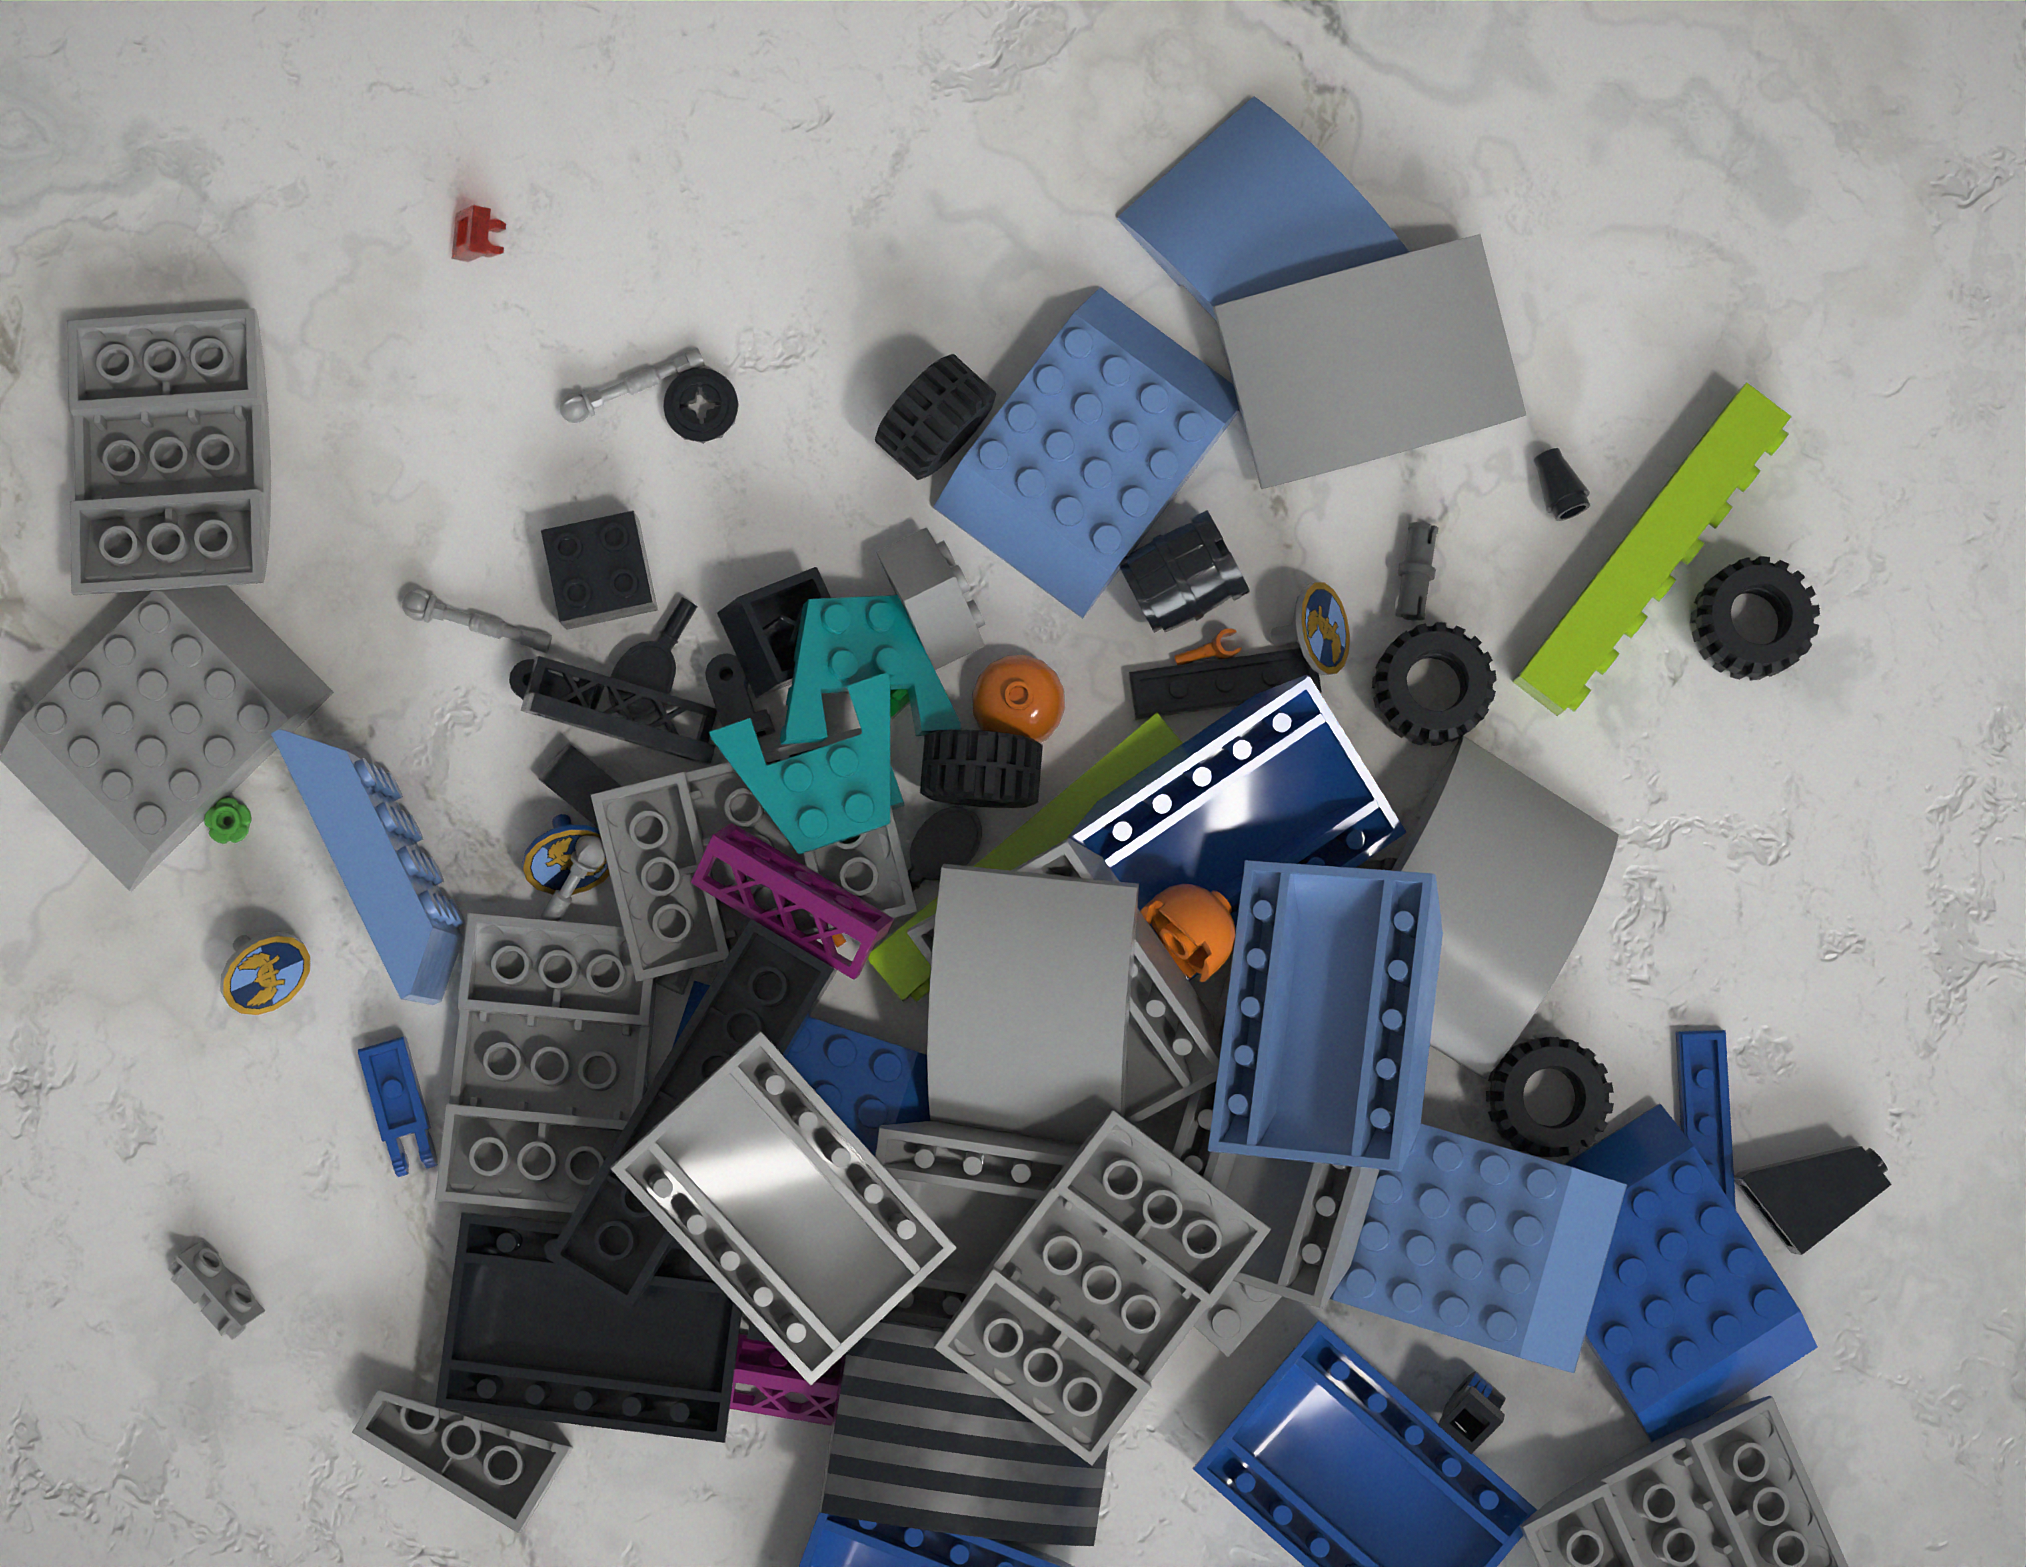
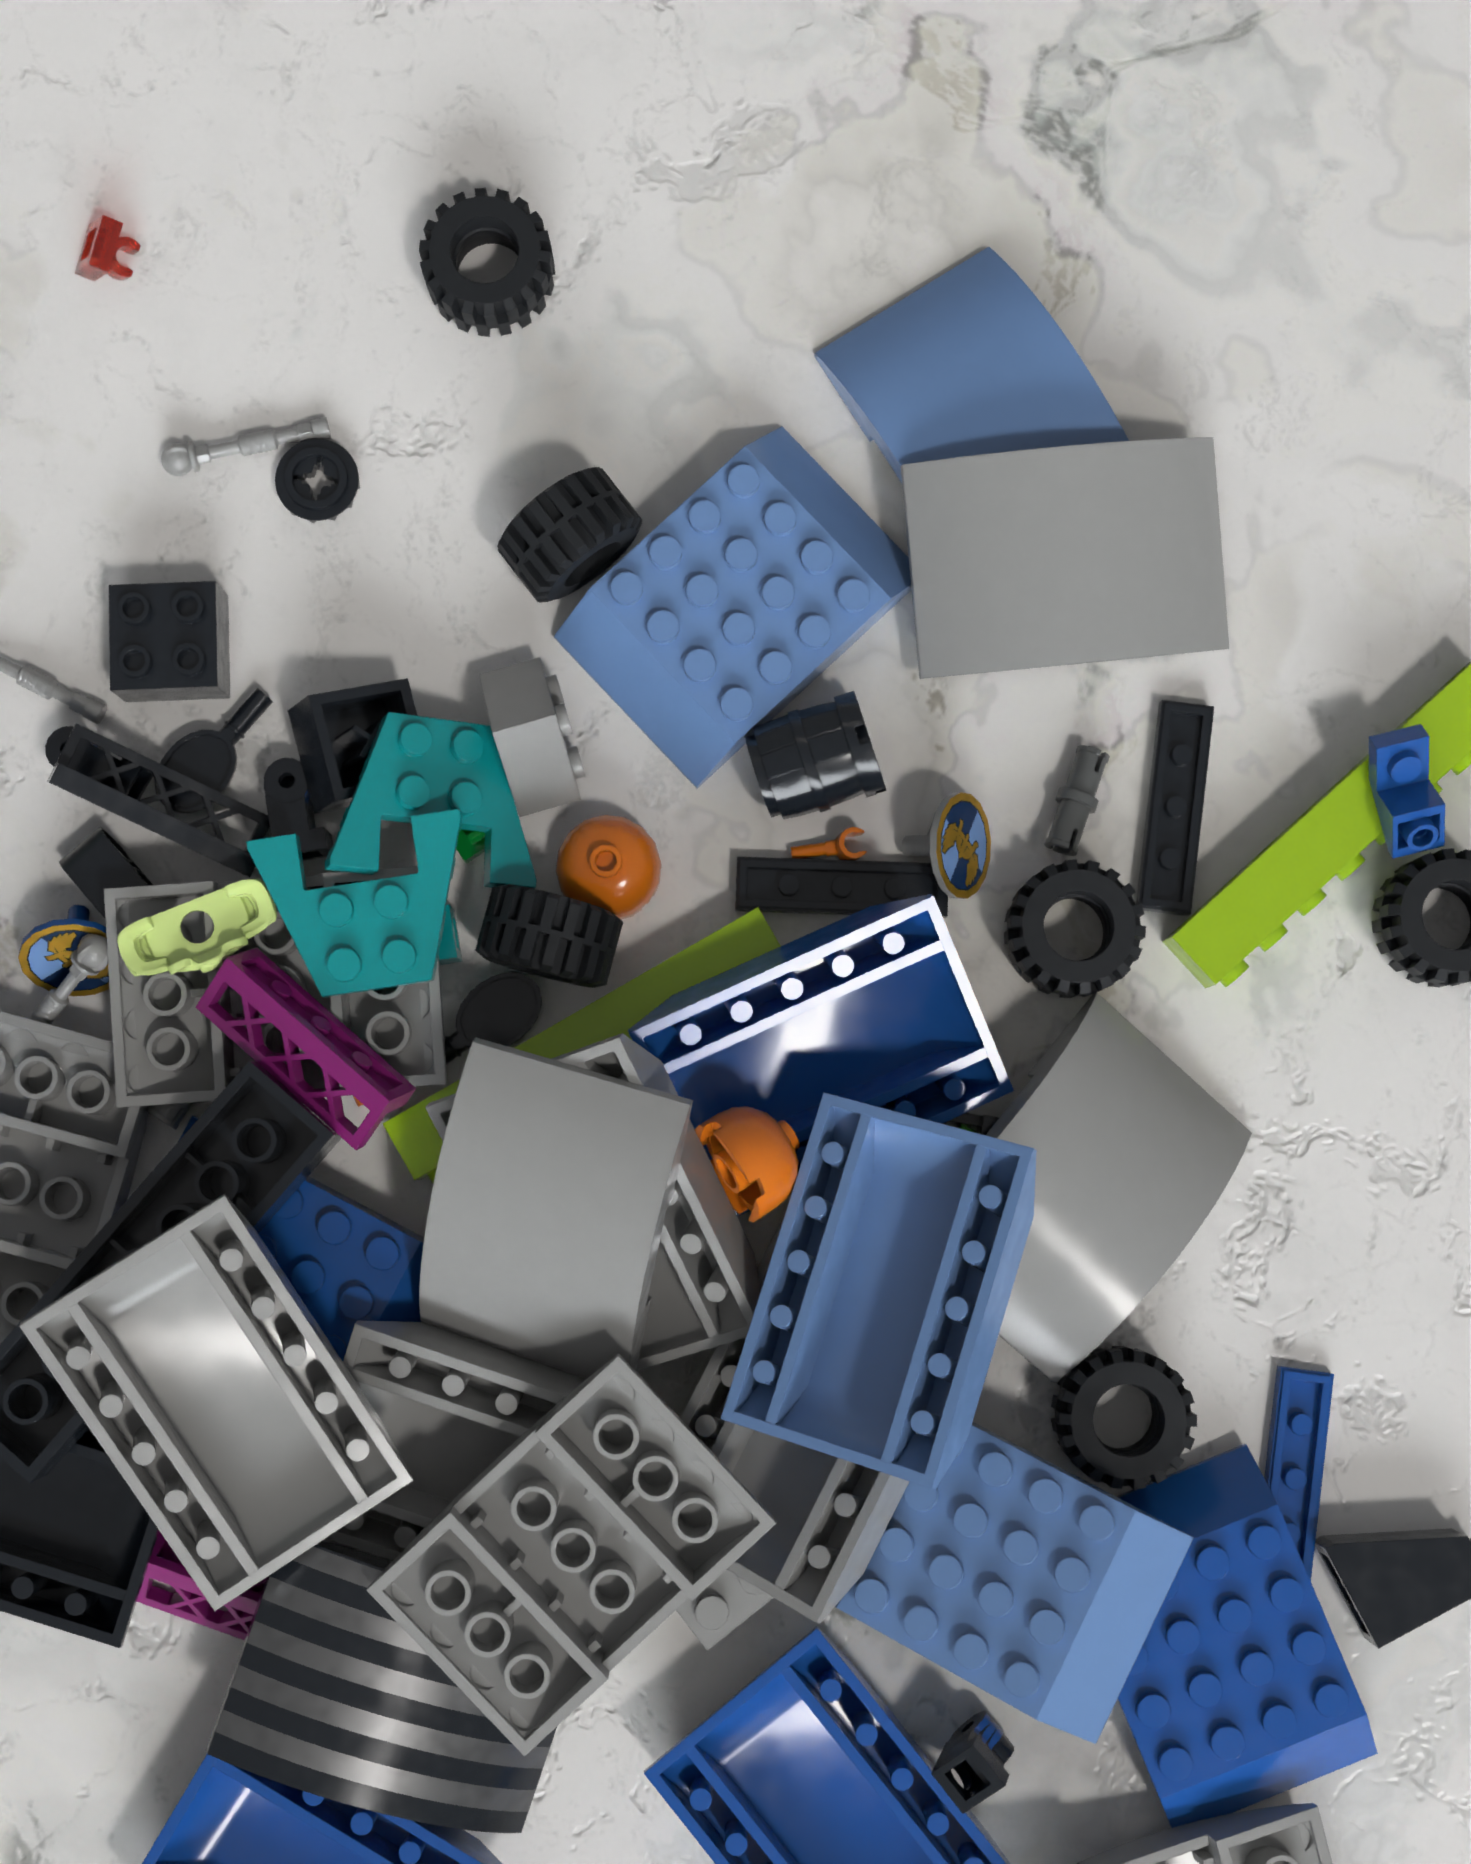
camera: 10 degrees right, 0 degrees up
(647, 833) = (158, 945): none -> yellowish green piece
(811, 151) = (477, 223): none -> black tyre
(1503, 562) = (1175, 807): none -> black tile
(1560, 485) = (1254, 734): black cone -> none
(1698, 517) = (1404, 796): none -> blue slope

